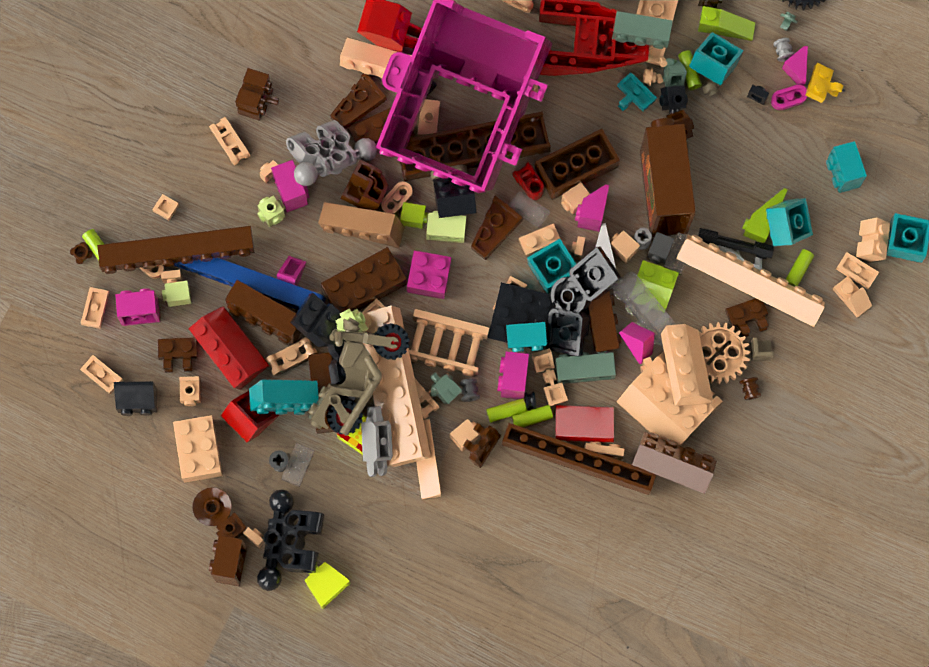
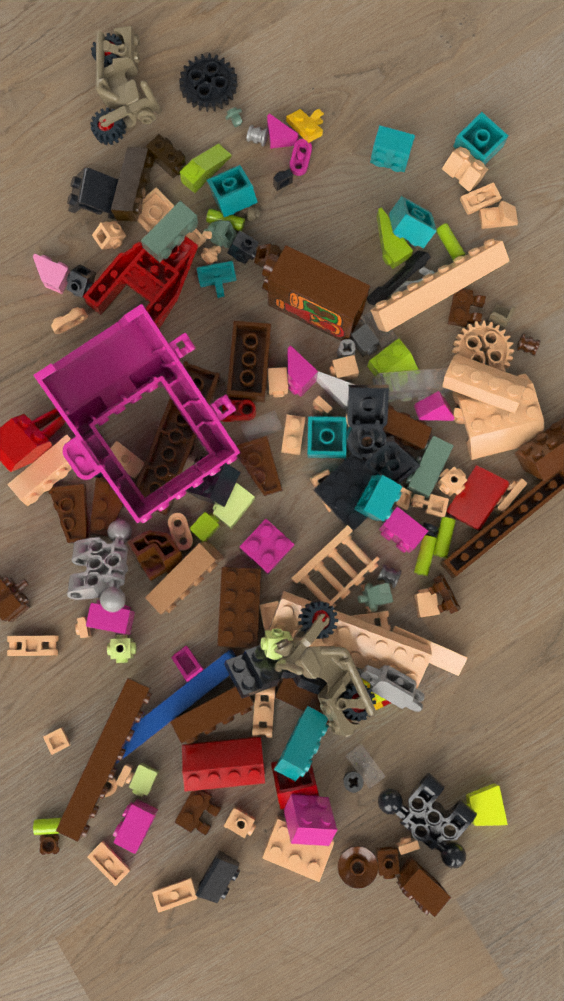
camera: 60 degrees left, 5 degrees up
(226, 440) = (310, 820): none -> dark pink brick
(584, 400) = (447, 486): none -> light nougat brick

